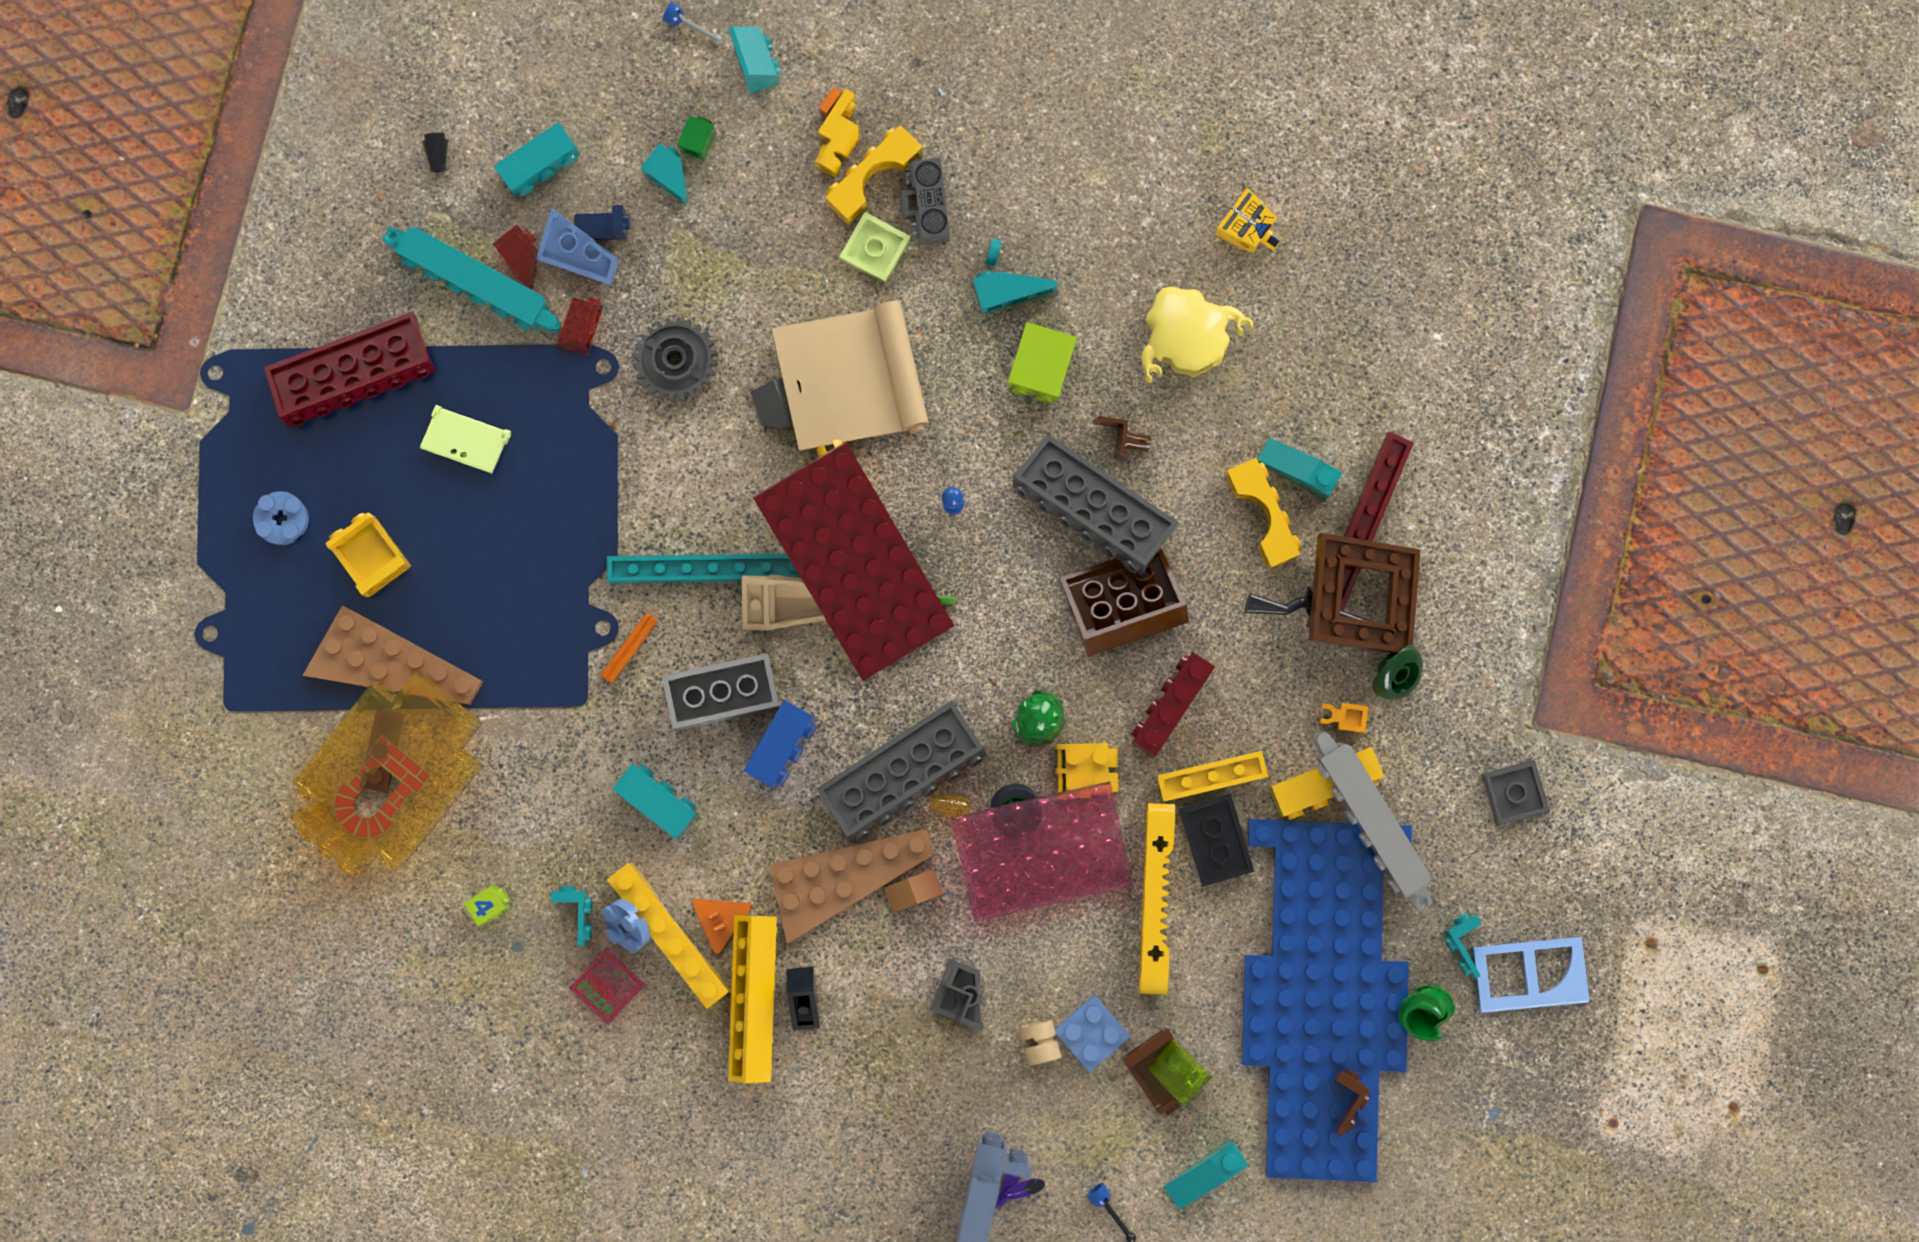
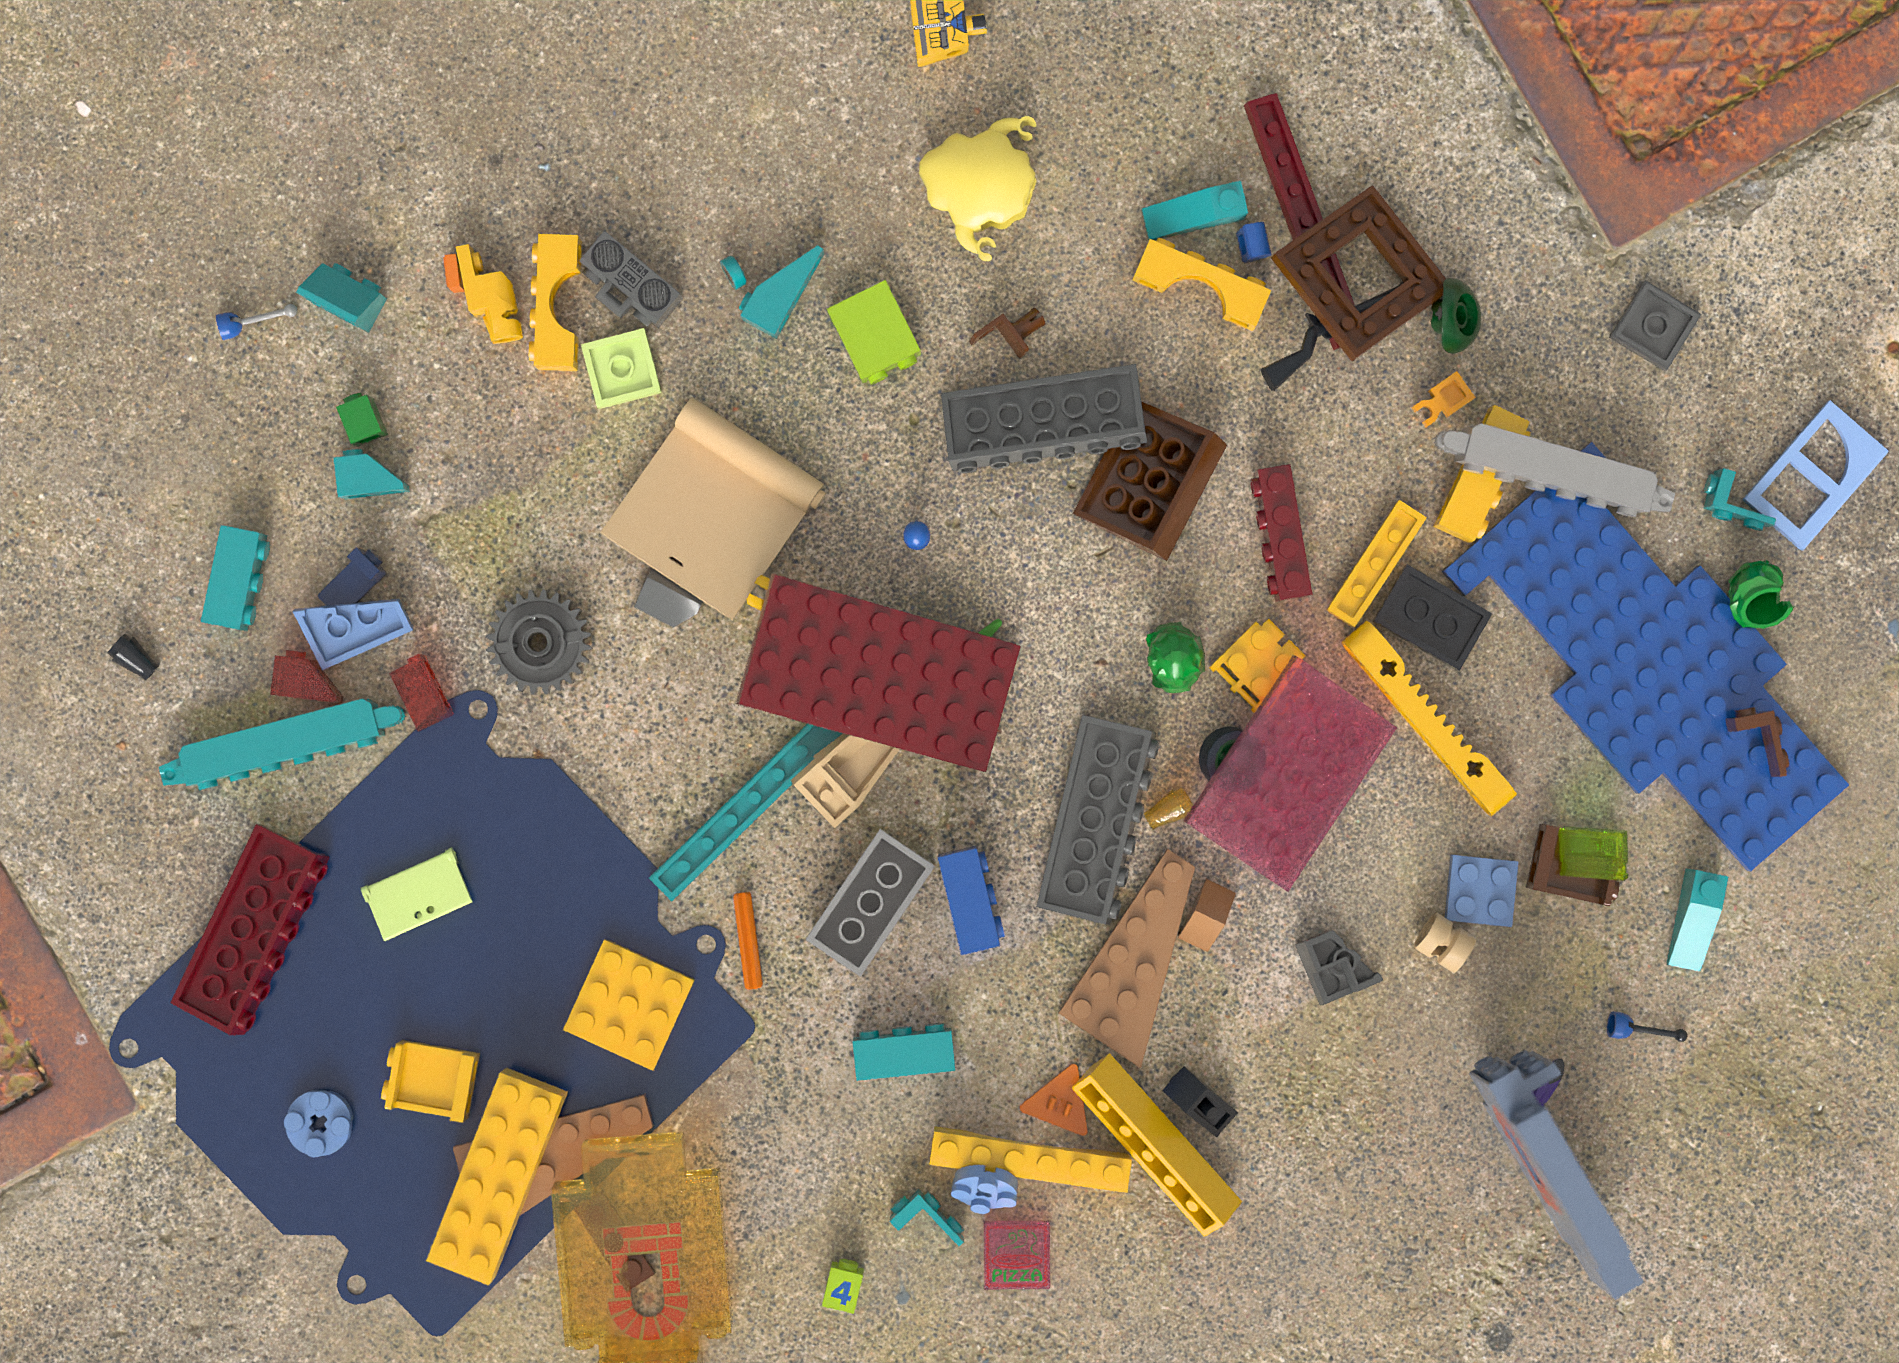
camera: 50 degrees left, 5 degrees up
(350, 644) = (497, 1176): none -> yellow brick
(524, 619) = (629, 1004): none -> yellow plate
(1317, 518) = (1253, 242): none -> blue brick

